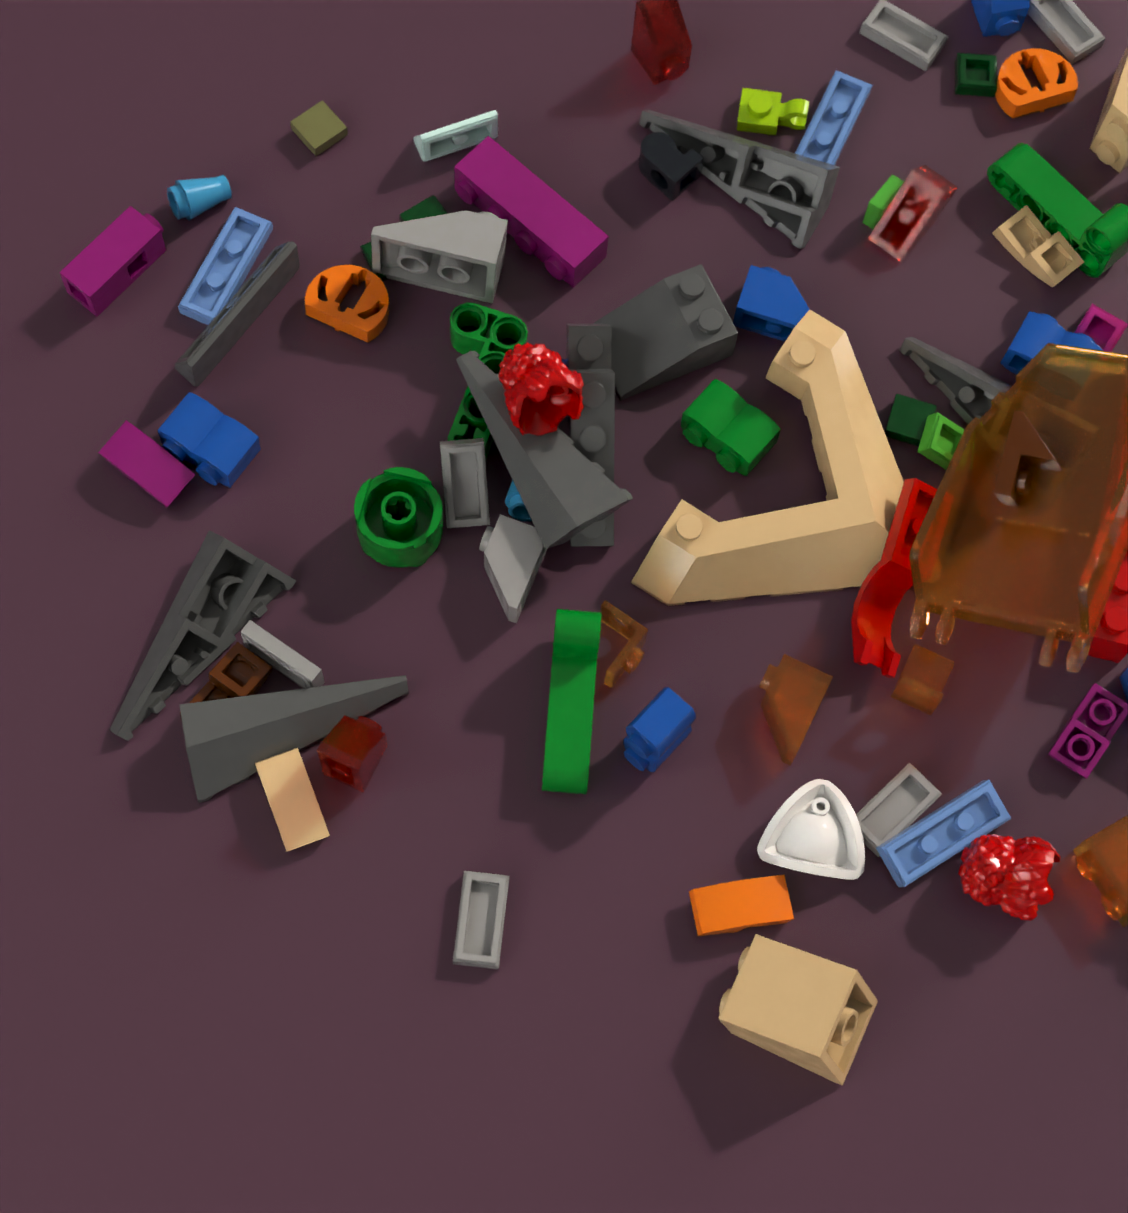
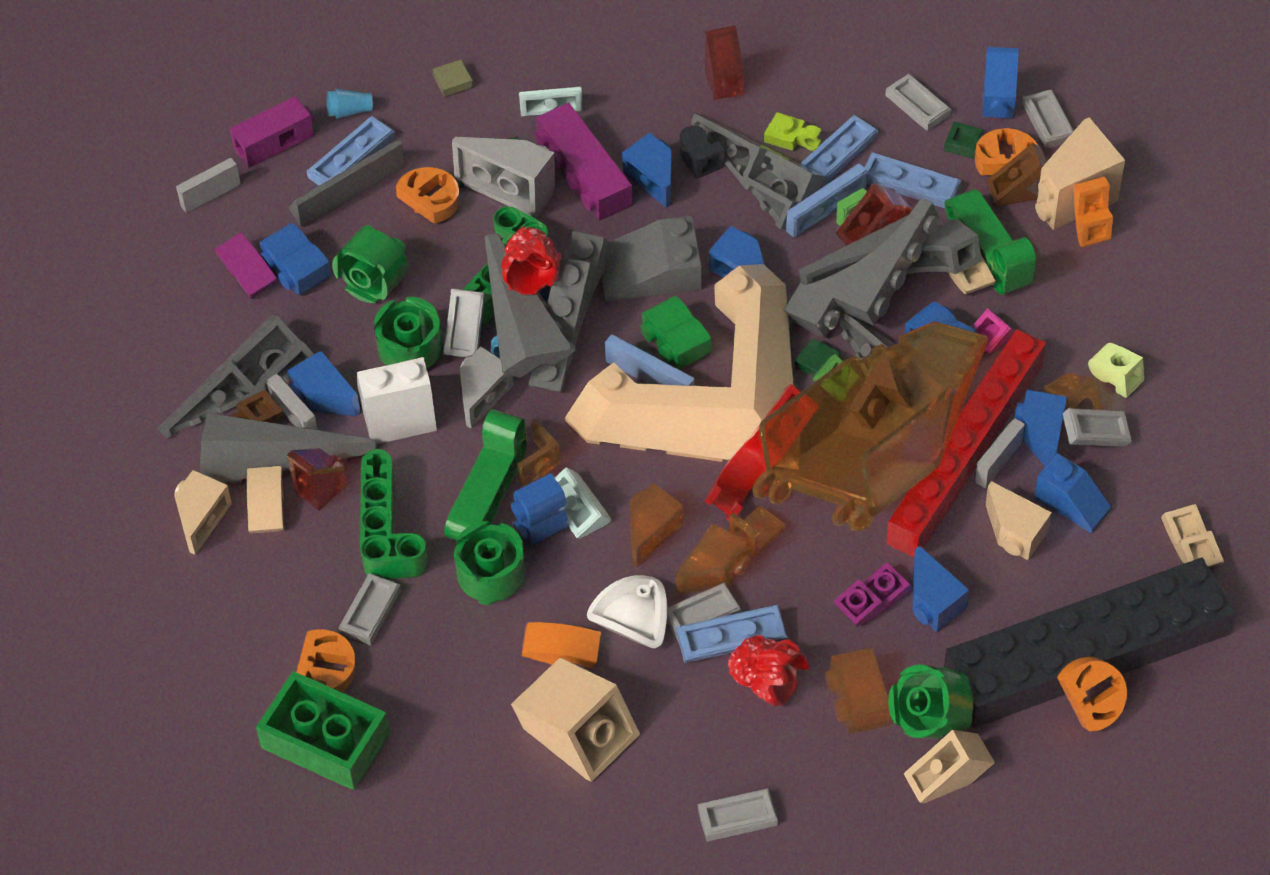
camera: 25 degrees right, 15 degrees down
(56, 358) = (208, 185): none -> light grey tile
(211, 836) = (200, 507): none -> tan slope
(311, 618) = (323, 387): none -> blue slope
(316, 428) = (371, 264): none -> green brick
(419, 618) = (397, 400): none -> white slope
(455, 782) = (381, 513): none -> green beam
(464, 995) = (327, 647): none -> orange piece
(491, 1123) = (323, 730): none -> green brick
(610, 794) = (489, 562): none -> green brick
(619, 202) = (650, 167): none -> blue slope
(709, 705) = (583, 509): none -> light aqua slope
(714, 487) = (643, 365): none -> medium blue tile
(847, 198) = (824, 201): none -> medium blue tile
(890, 737) = (713, 561): none -> clear orange slope
(932, 145) = (911, 179): none -> medium blue tile
(950, 313) = (867, 285): none -> dark grey arch
(960, 248) = (948, 249): none -> dark grey arch
(1035, 1081) = (737, 814): none -> light grey tile
(1065, 113) = (1018, 178): none -> reddish brown slope

